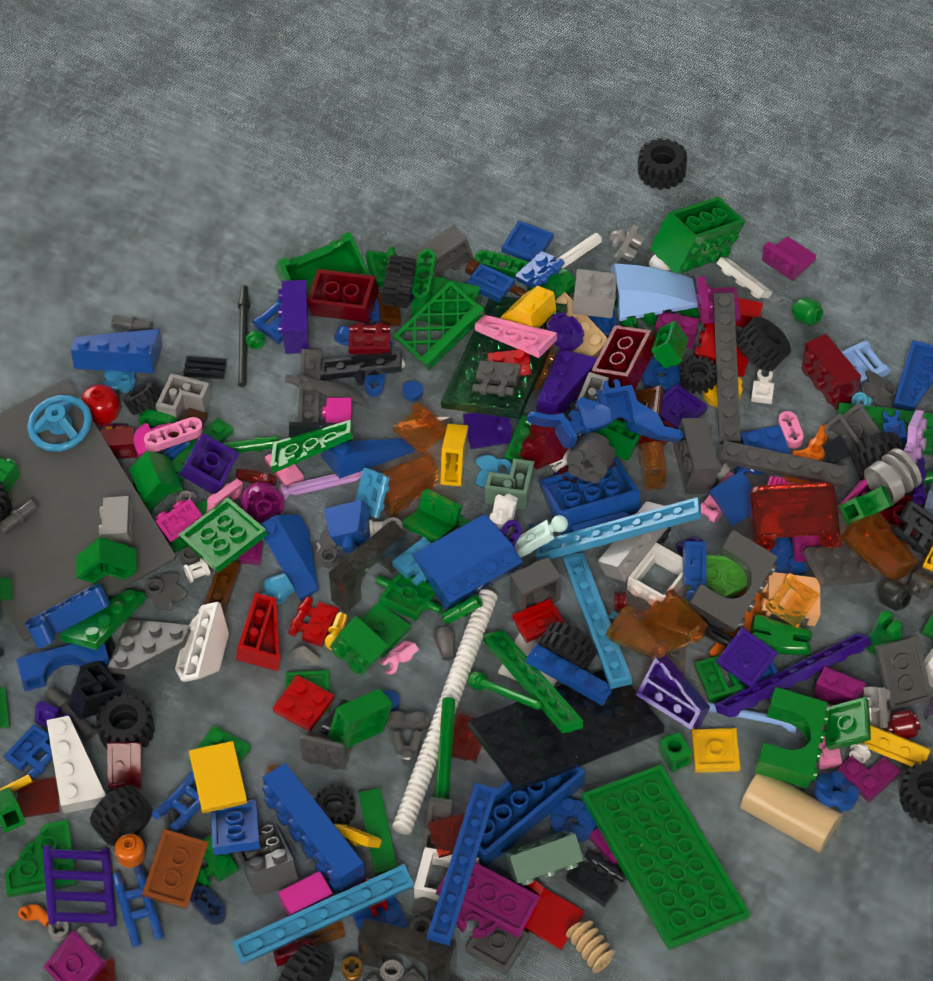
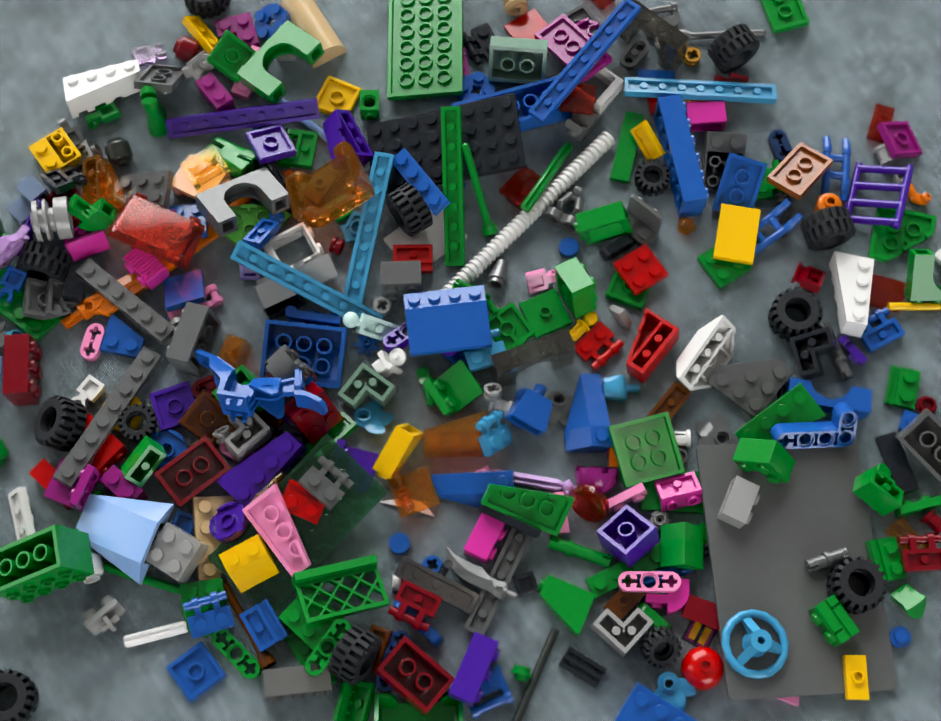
camera: 155 degrees left, 15 degrees up
(241, 402) = (566, 602): none -> green slope
(284, 406) = (525, 584): none -> black tile

